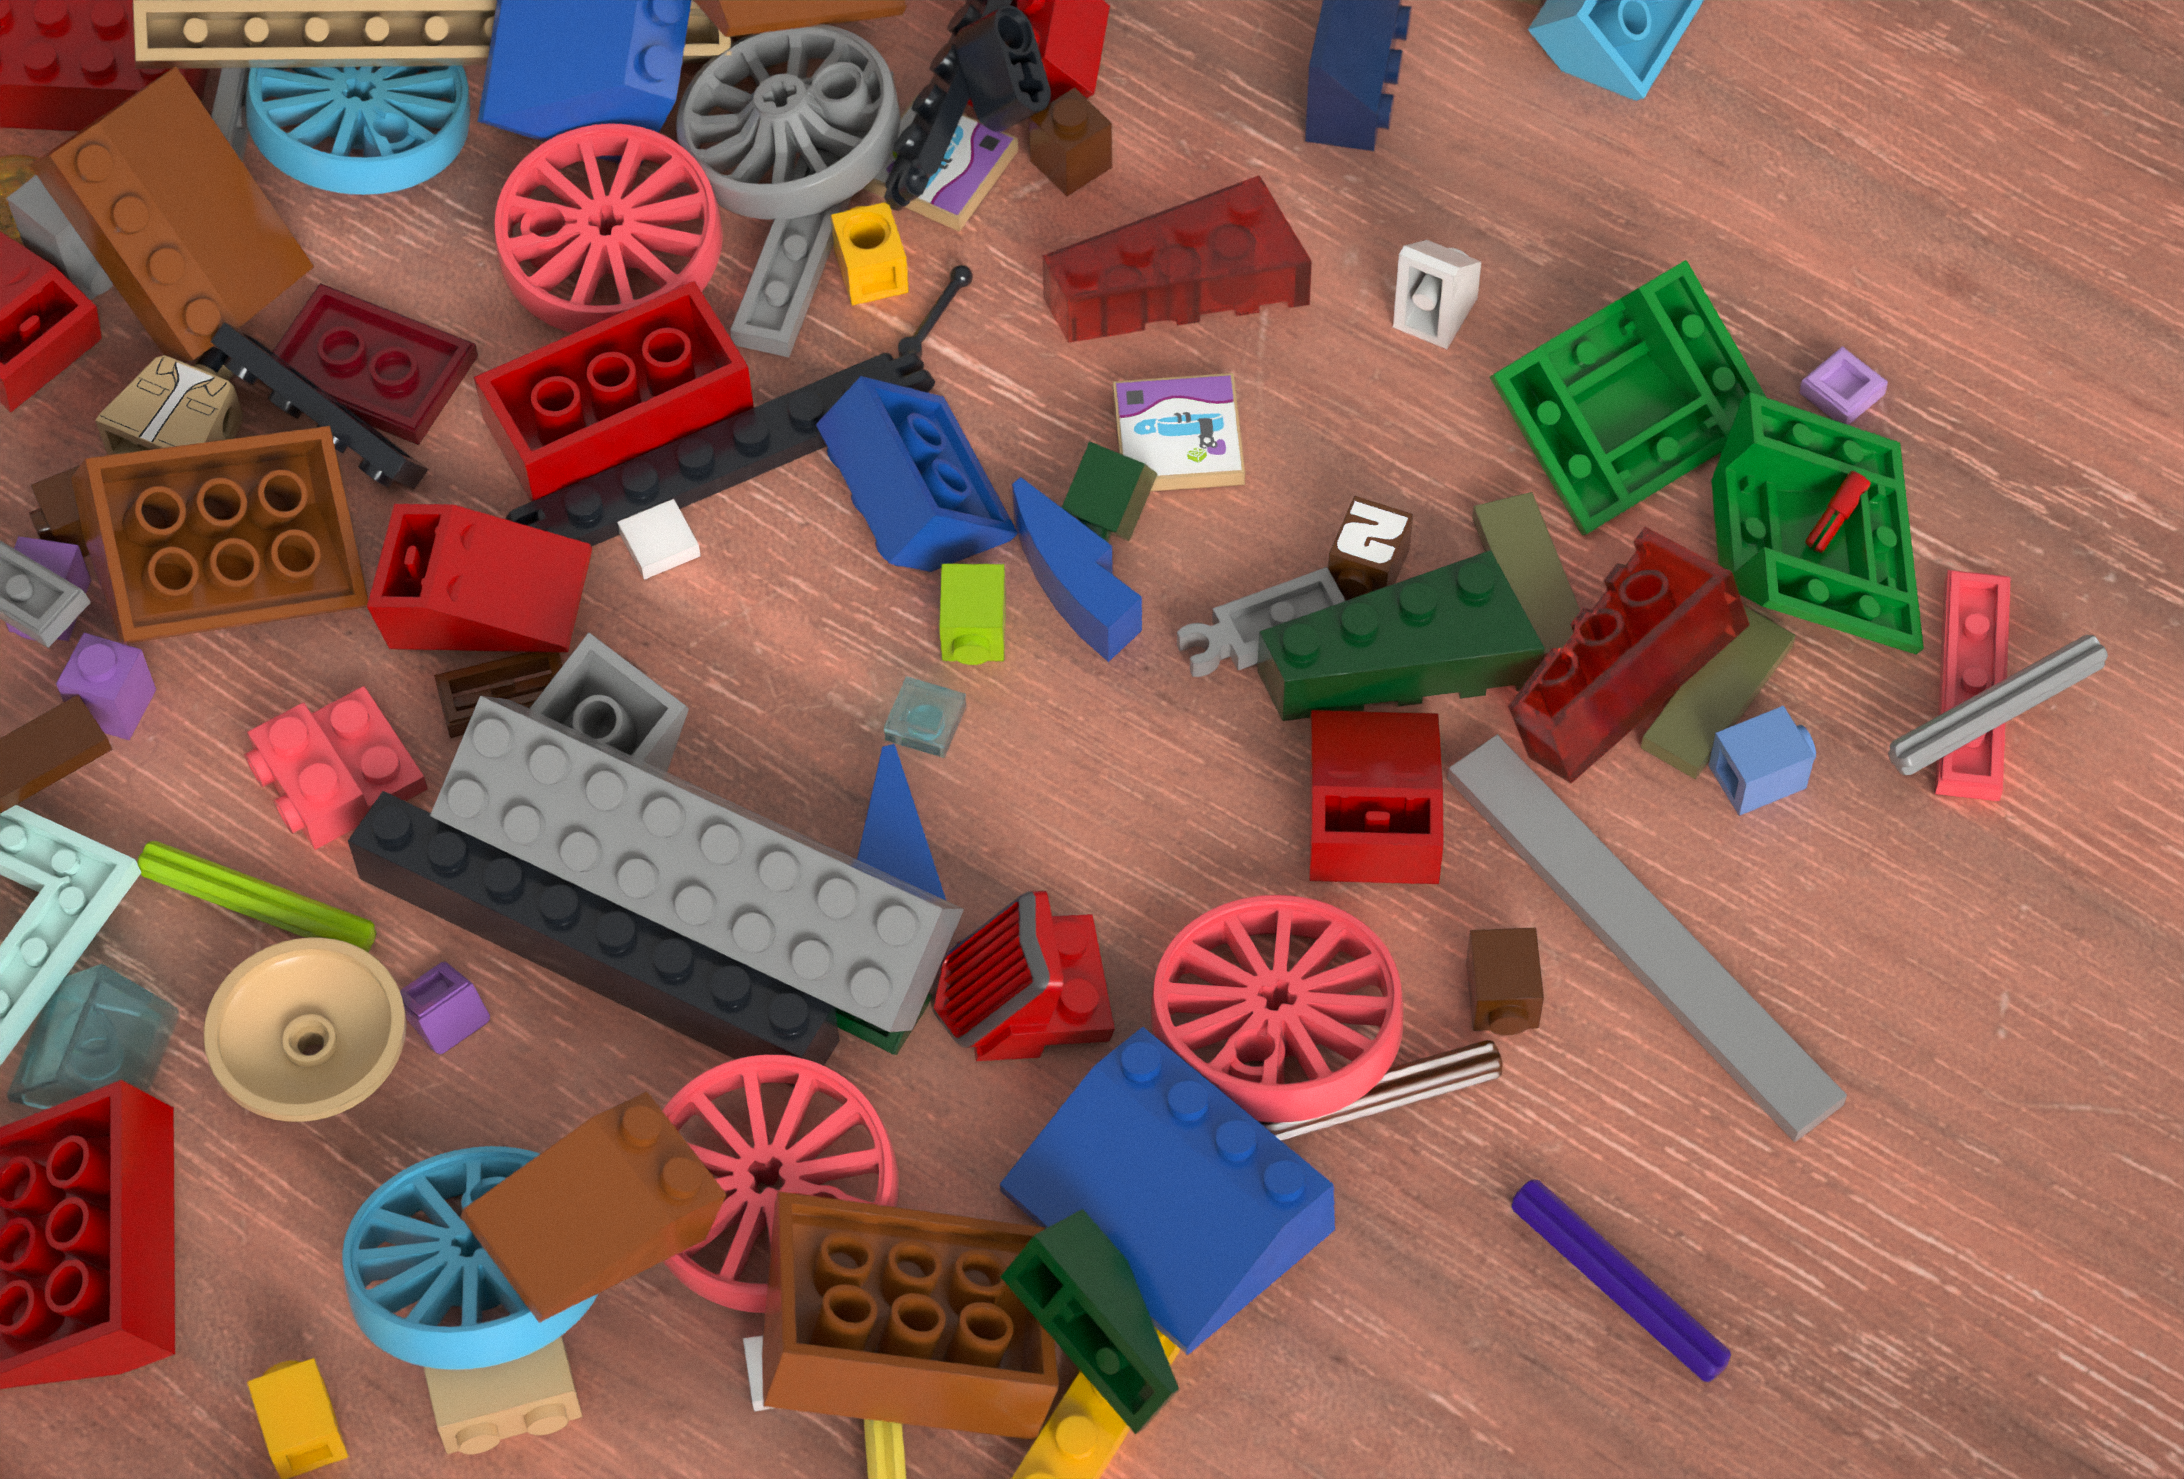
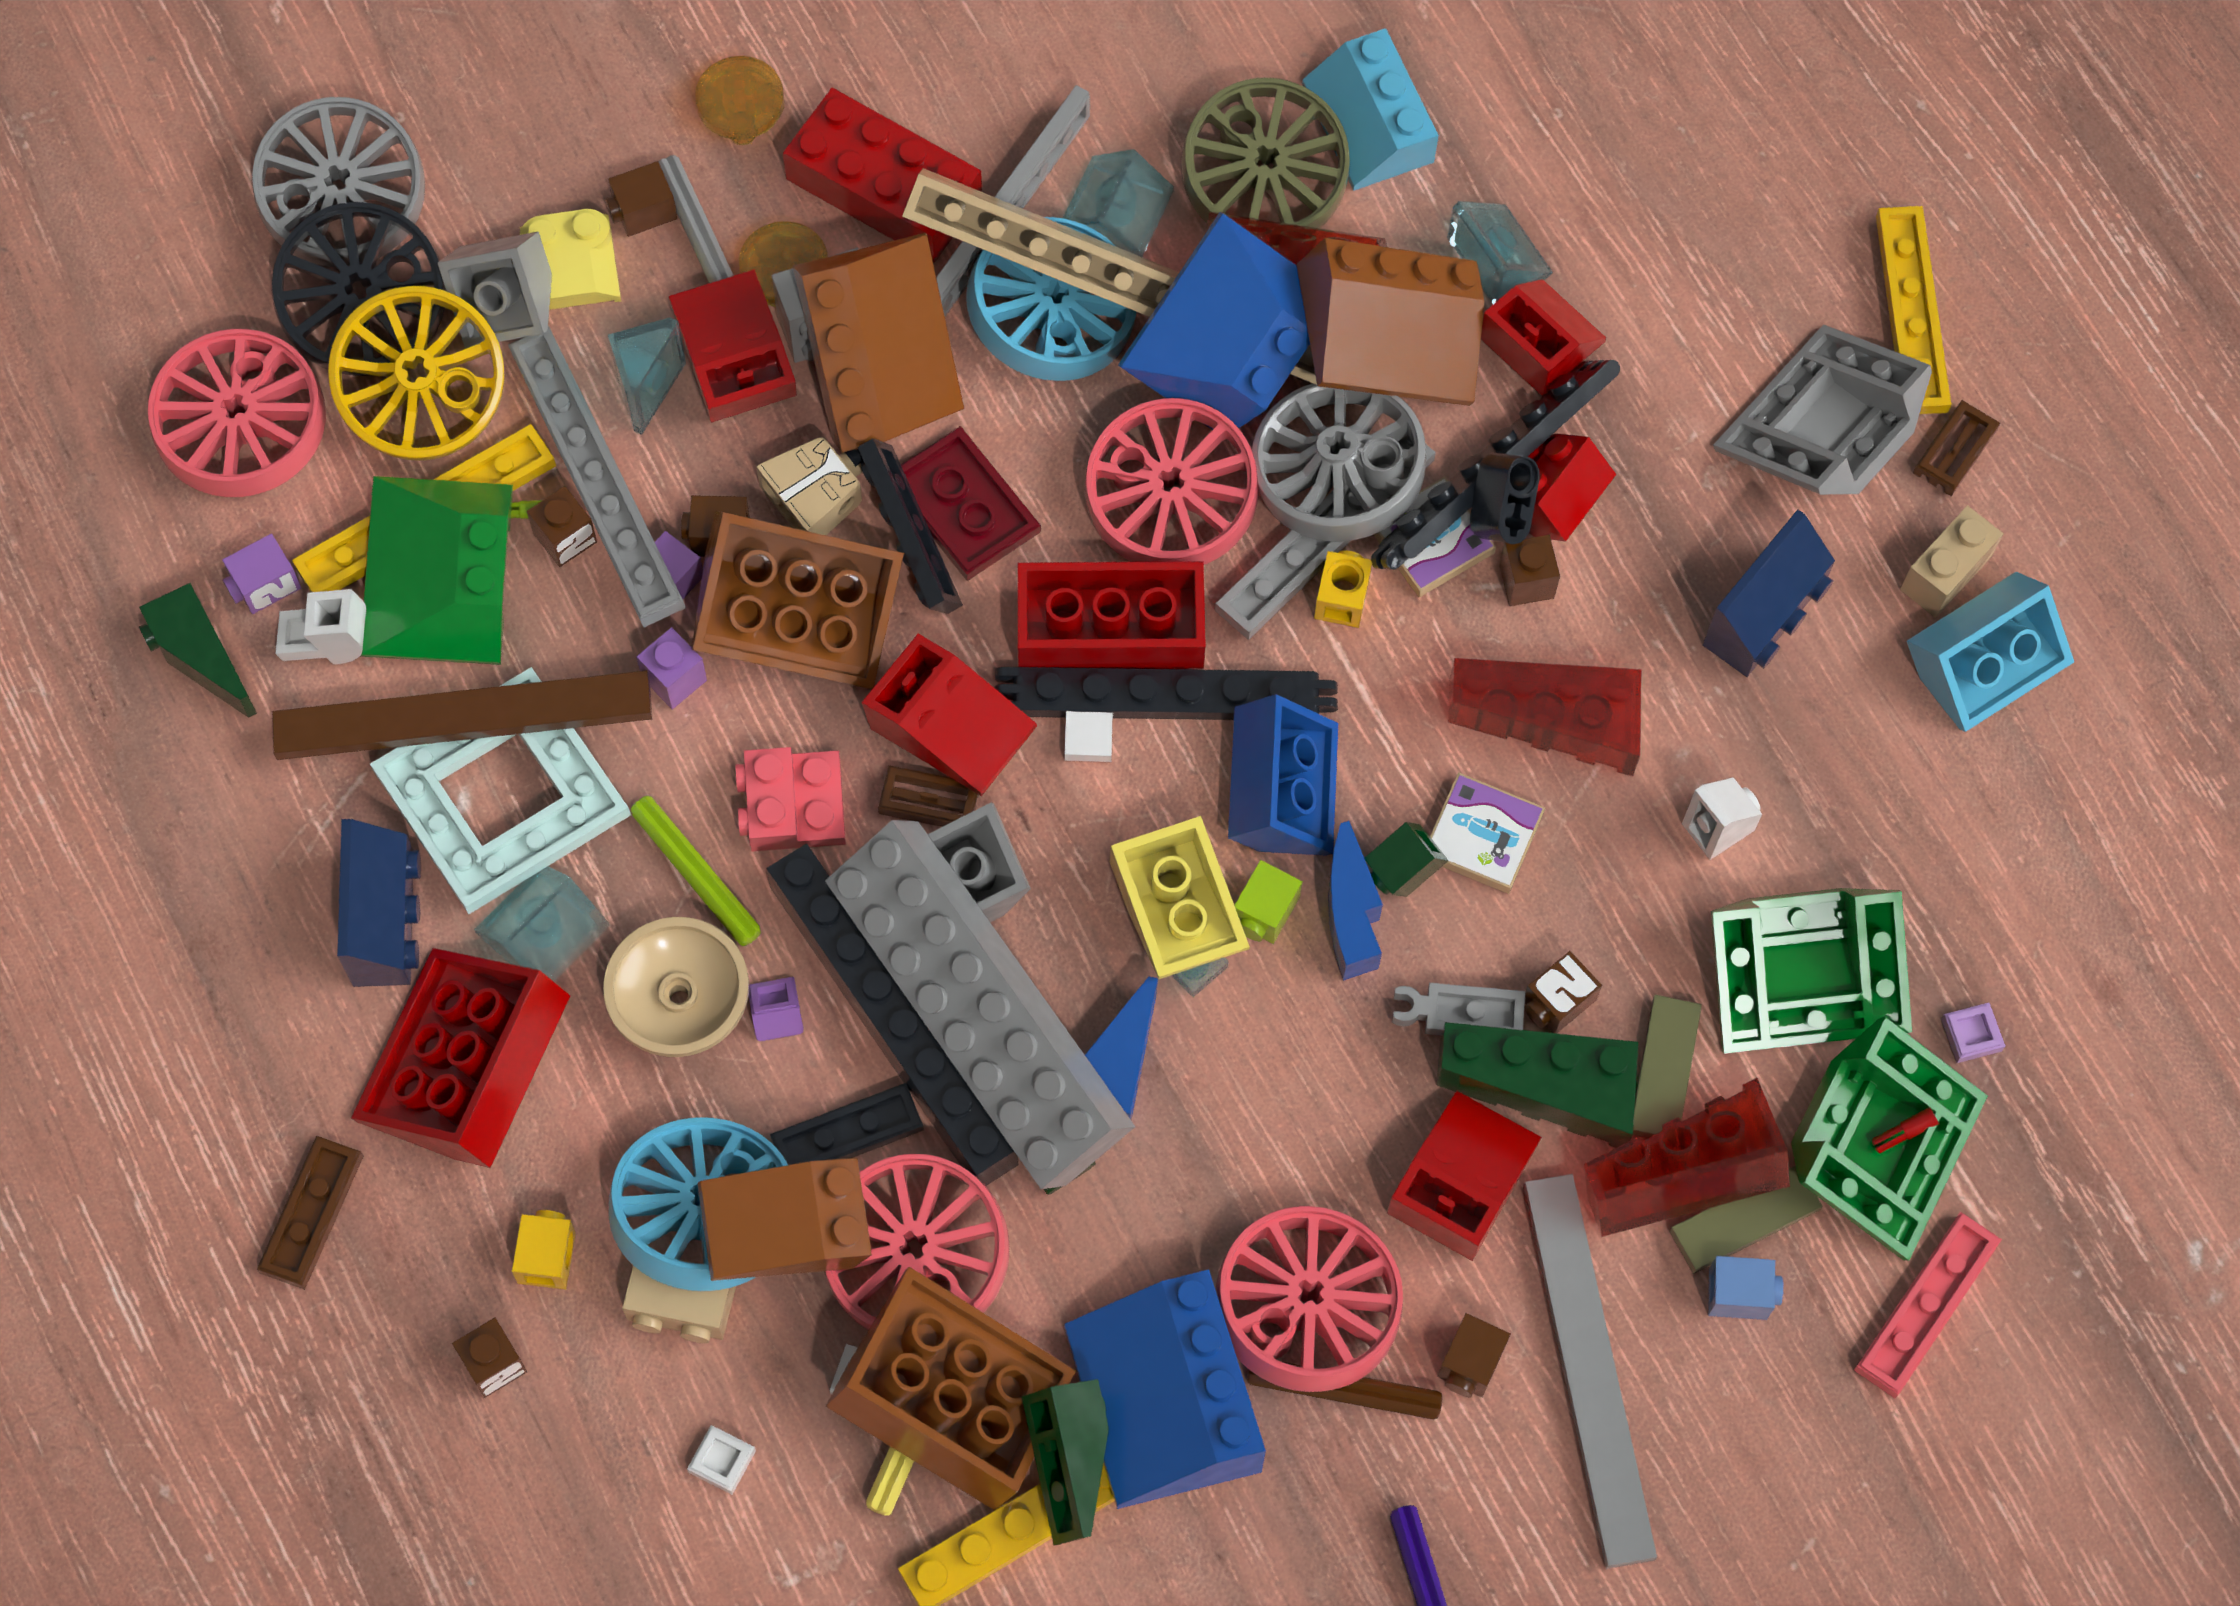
camera: 25 degrees right, 10 degrees up
(644, 1060) = (851, 1128): none -> black tile
(864, 647) = (1177, 897): none -> light yellow slope
(960, 277) = (1336, 672): black hinge -> none
(1025, 983) = (1155, 1193): red piece -> none
(1997, 705) = (1929, 1333): light grey axle -> none

